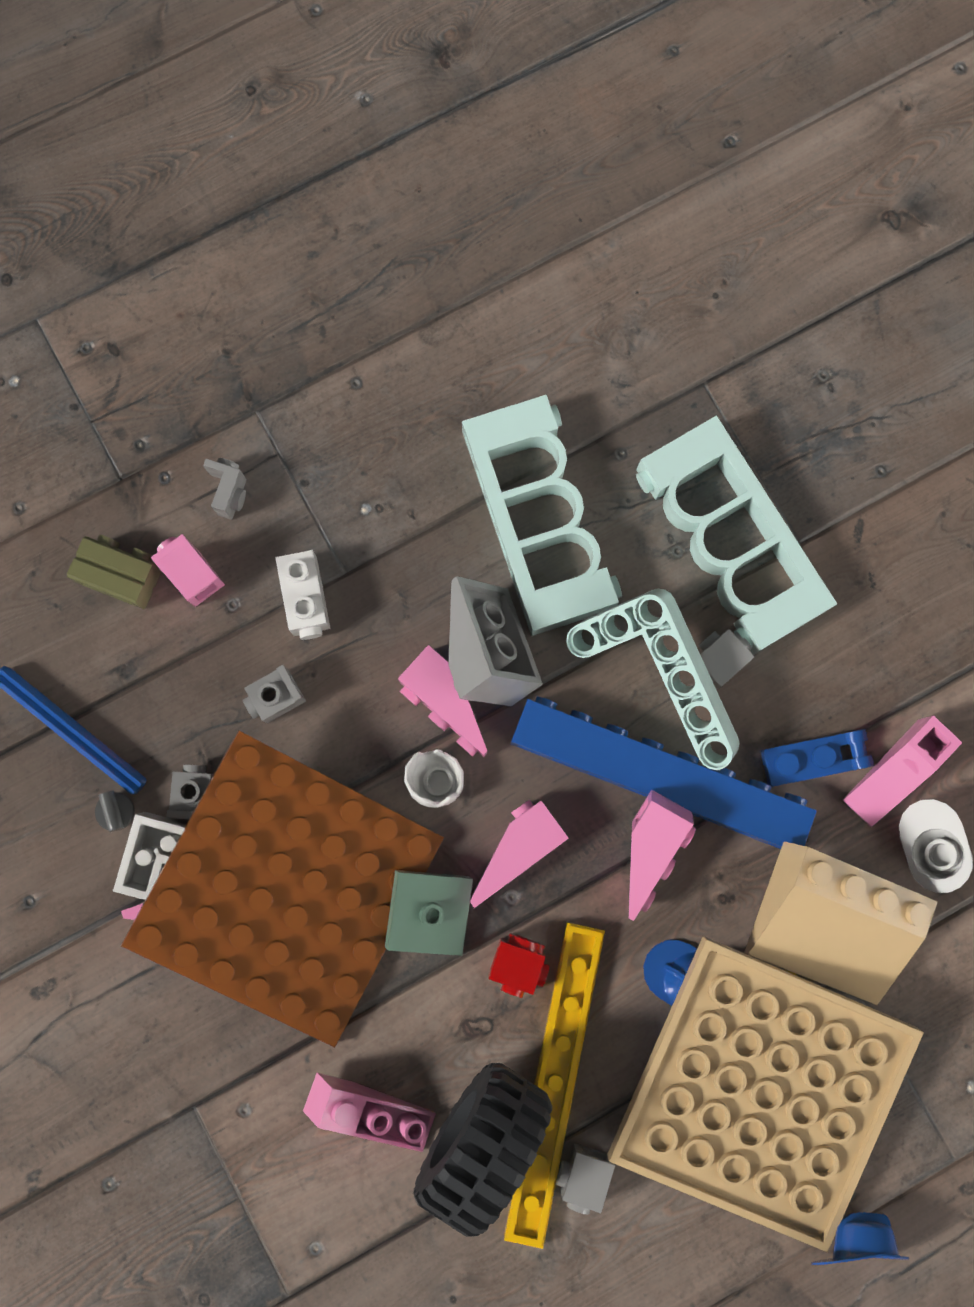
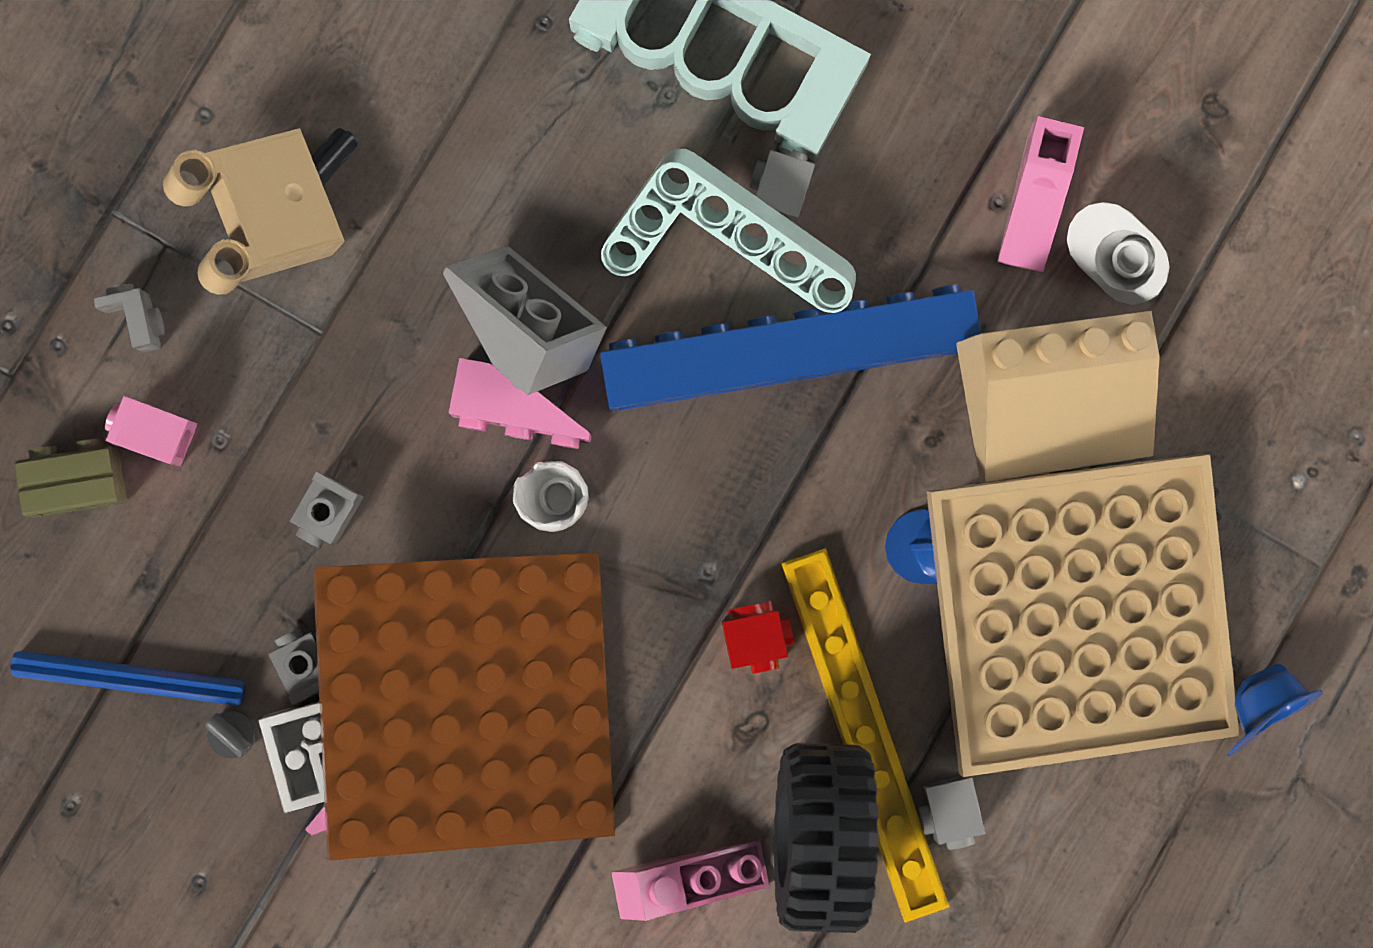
camera: 30 degrees left, 5 degrees up
(303, 594) = (291, 383): white brick -> none
(361, 461) = (268, 203): none -> tan piece
(428, 913) = (629, 639): sand green plate -> none
(510, 431) = (408, 70): light aqua fence -> none
(523, 844) = (686, 507): bright pink slope -> none
(656, 836) = (820, 420): bright pink slope -> none
(815, 758) = (943, 234): blue plate -> none

